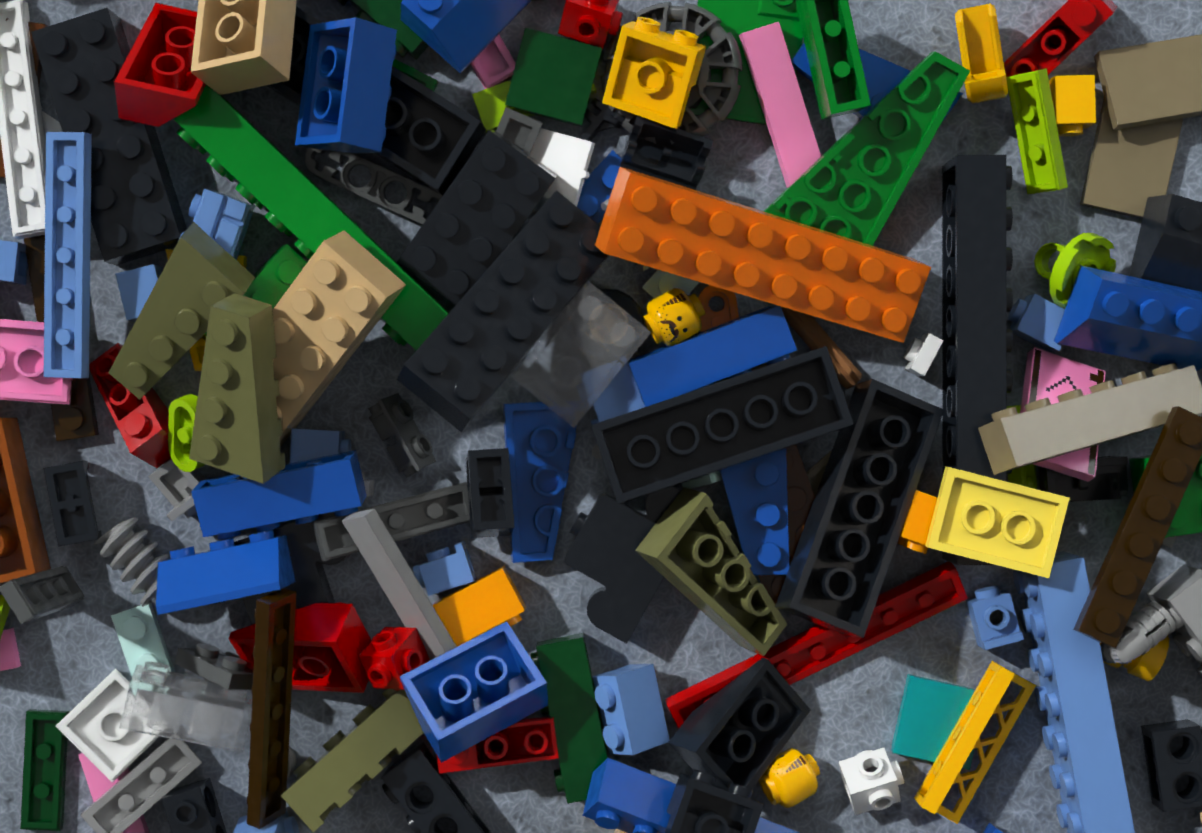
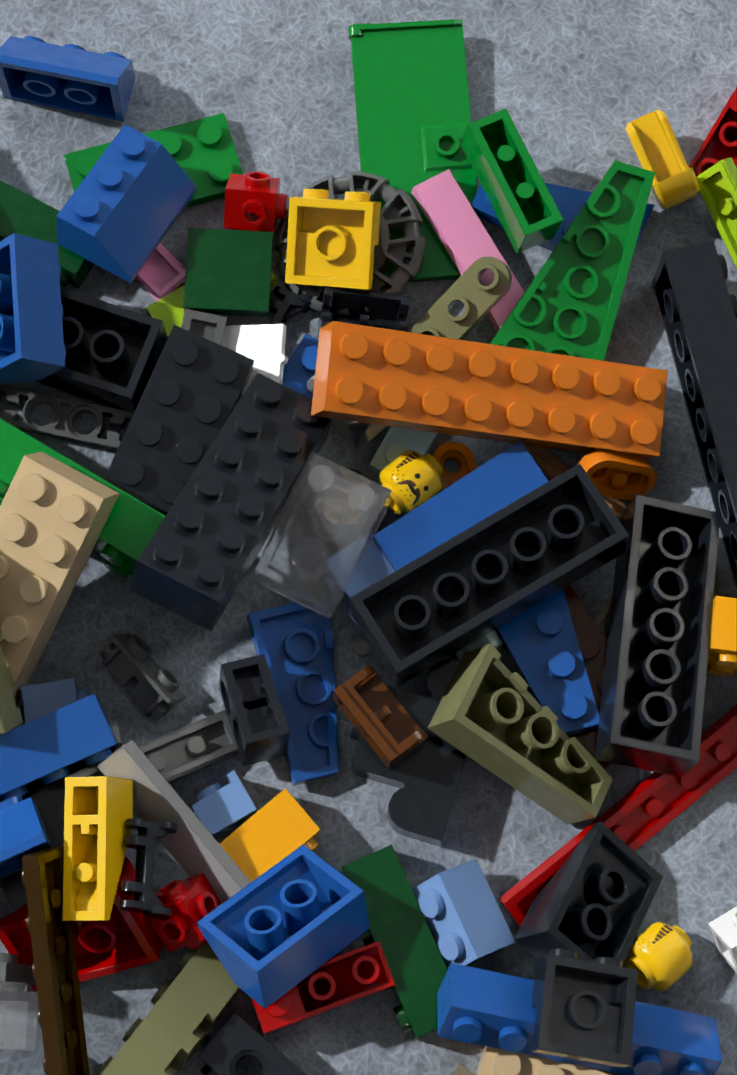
camera: 15 degrees left, 15 degrees down
(324, 593) = (94, 844): none -> yellow slope
(358, 648) = (147, 839): none -> black piece
(597, 527) = (379, 716): none -> reddish brown hinge
(773, 157) = (475, 297): none -> olive plate
(860, 348) = (619, 474): none -> orange plate
(922, 353) = (681, 468): white plate -> none

